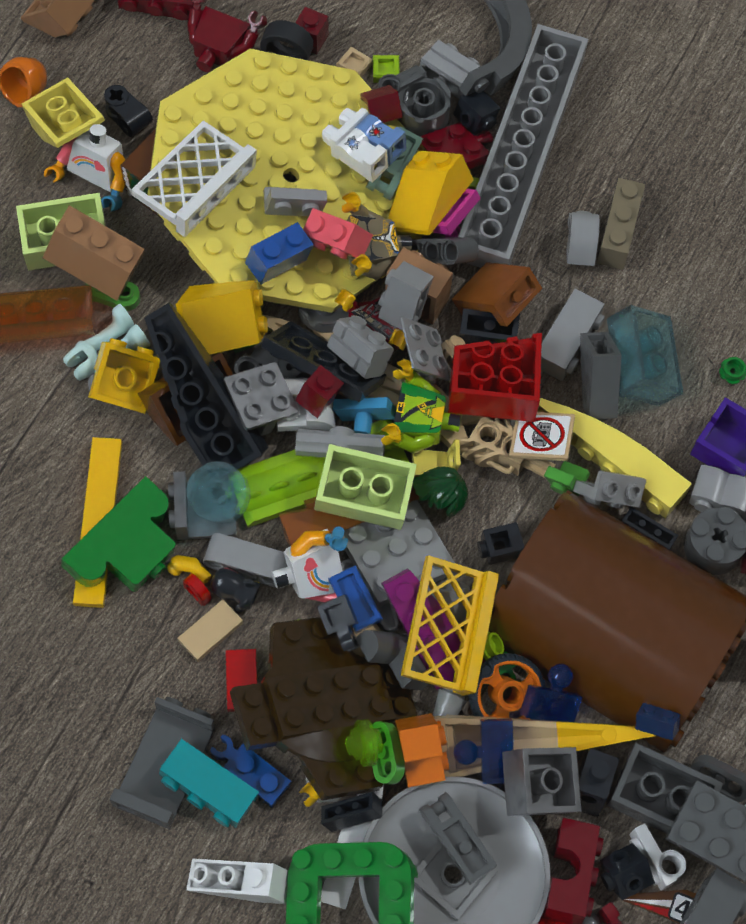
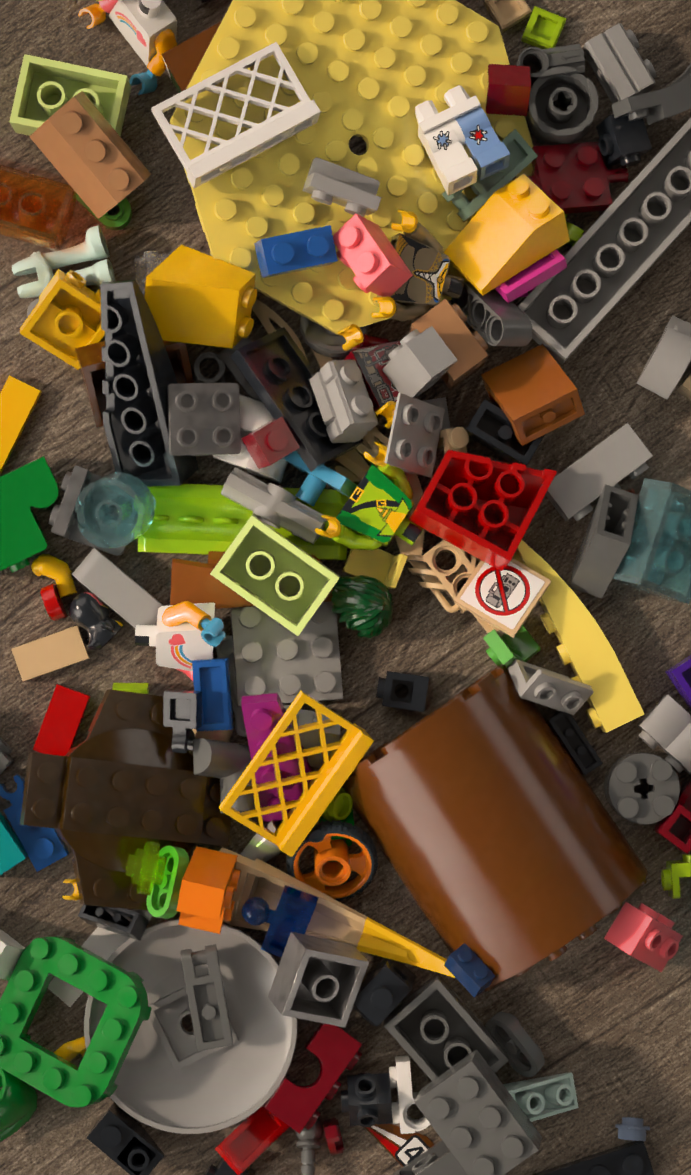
camera: 25 degrees right, 20 degrees up
(552, 702) = (373, 895): clear blue plate -> none

